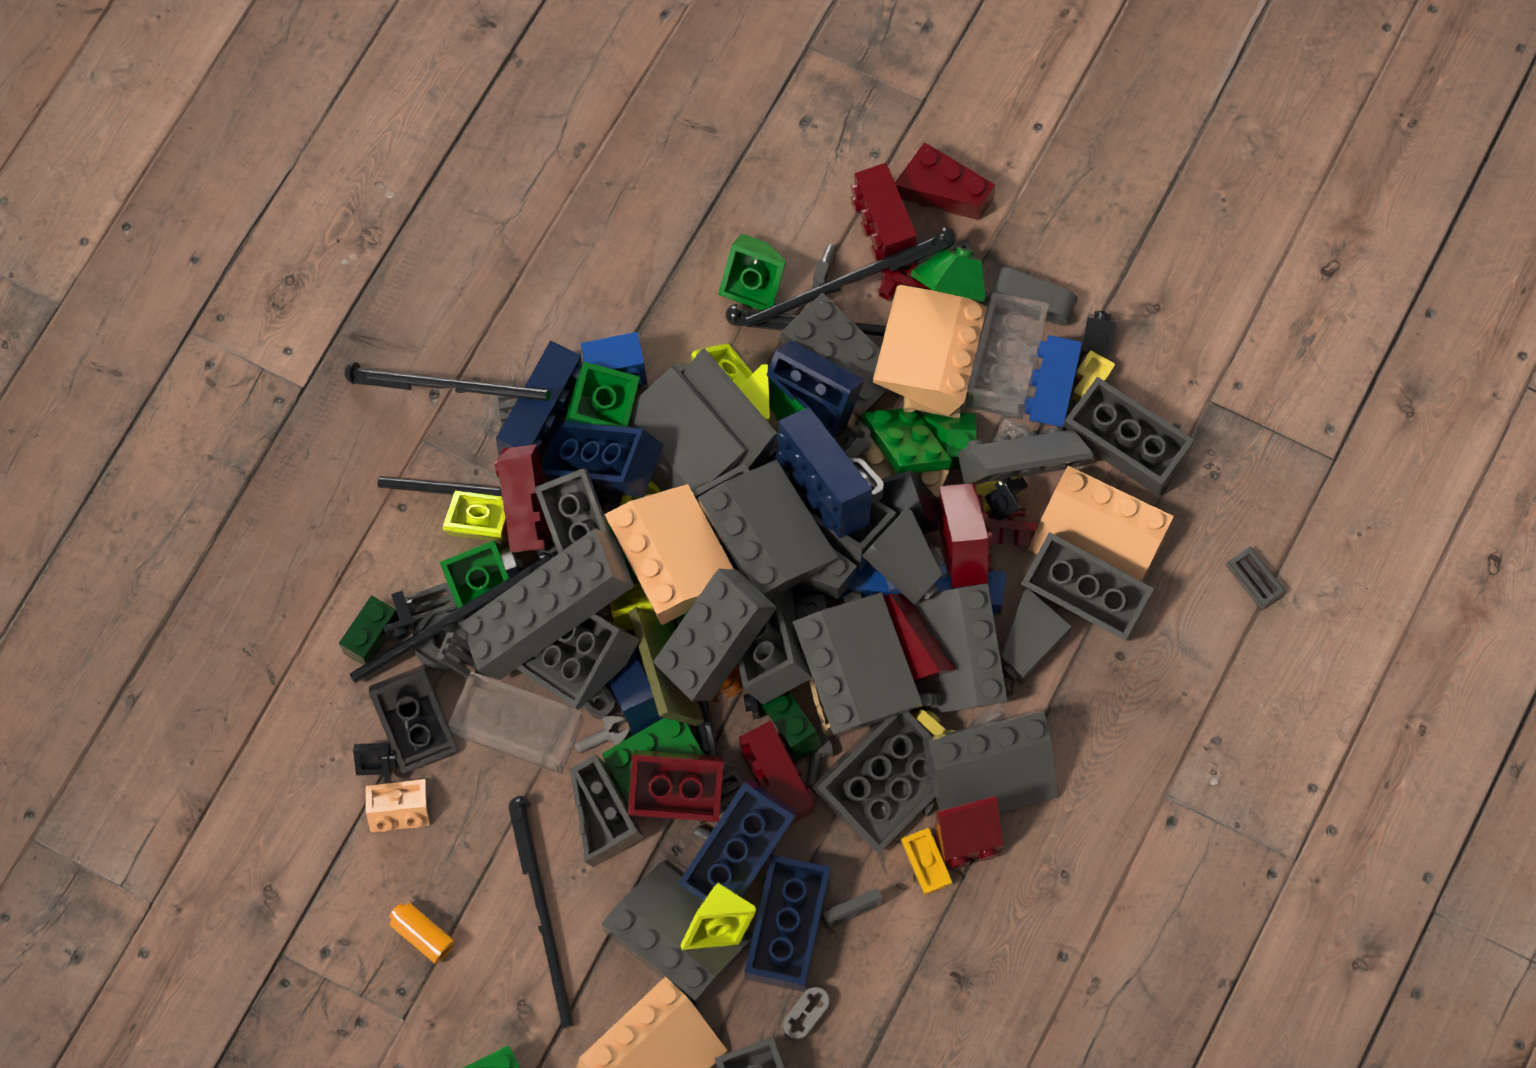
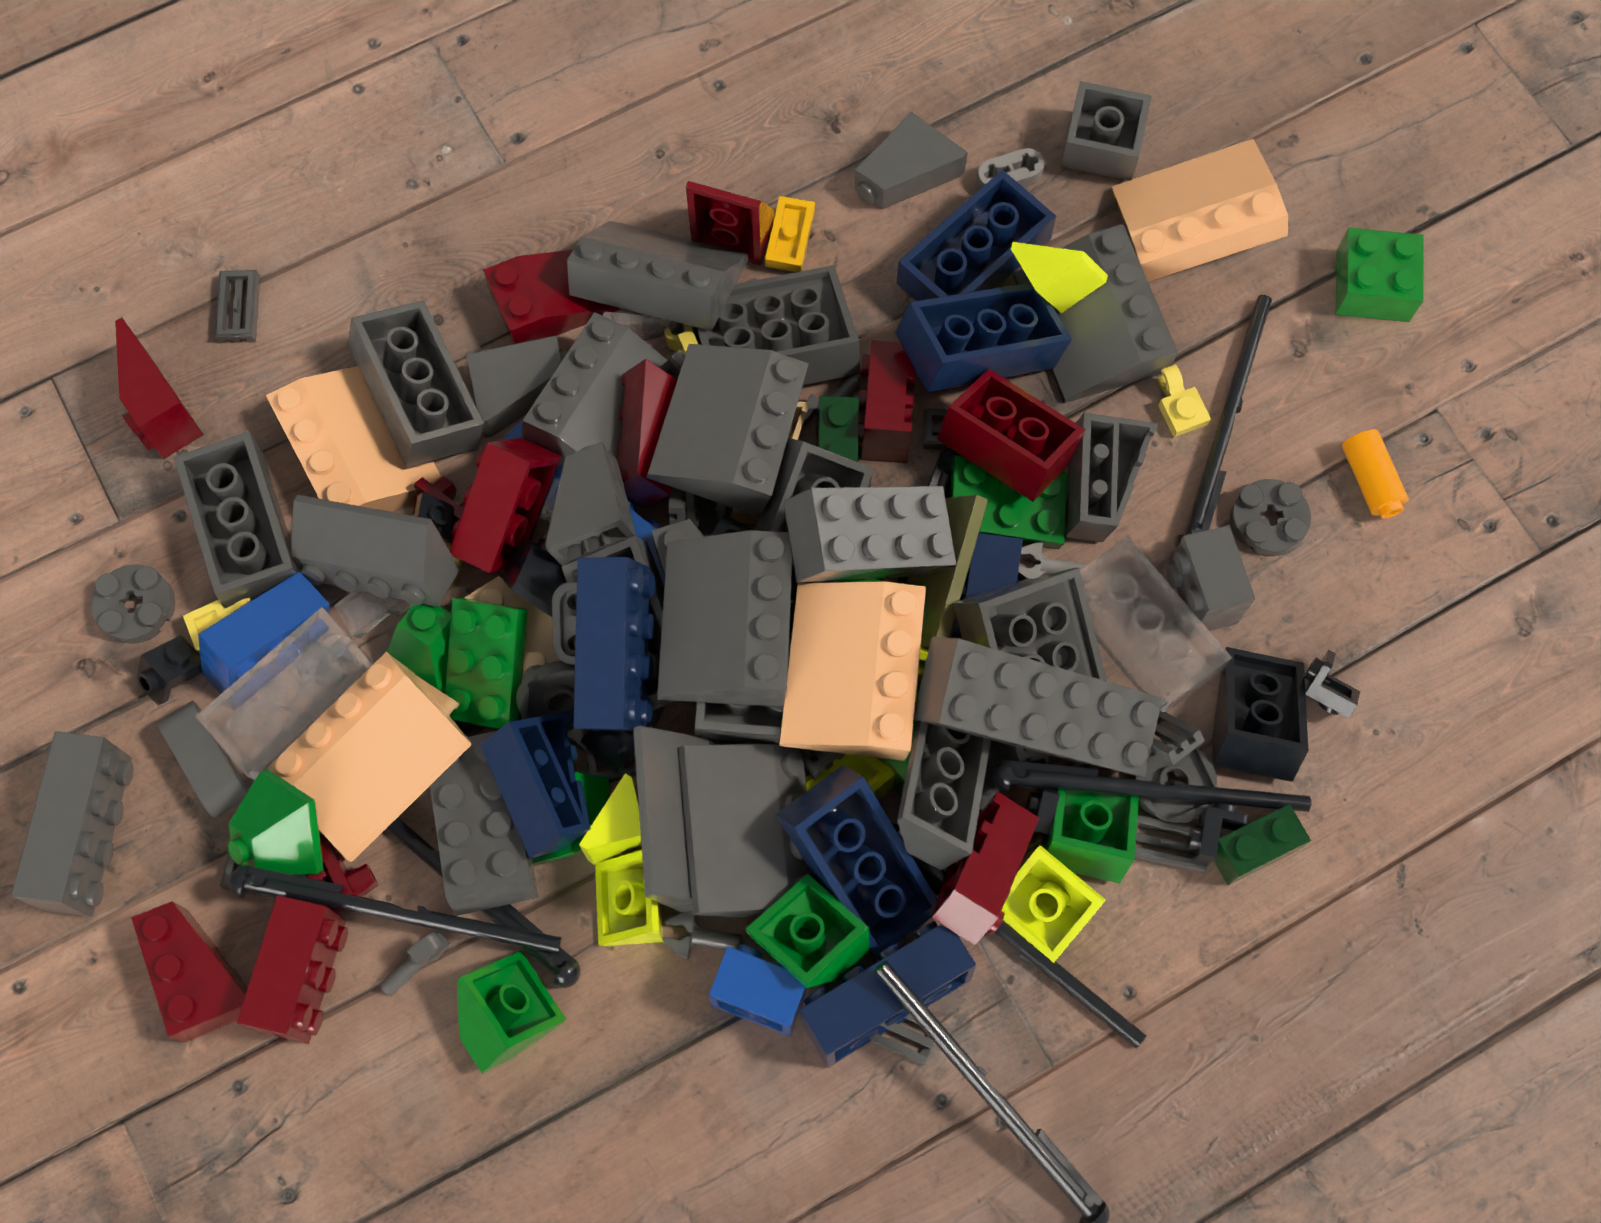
camera: 150 degrees left, 0 degrees up
(397, 805) = (1330, 627): light nougat bracket -> none
(476, 844) = (1256, 532): none -> dark grey plate
(489, 774) = (1211, 577): none -> dark grey brick
(579, 904) = (1181, 407): none -> light yellow plate
(852, 908) = (893, 231): dark grey tile -> none
(881, 968) = (908, 164): none -> dark grey slope
(1067, 702) = (536, 298): none -> dark red slope
(1071, 211) = (73, 825): none -> dark grey brick
(1155, 341) = (123, 583): none -> dark grey plate
(1250, 476) = (151, 403): none -> dark red slope

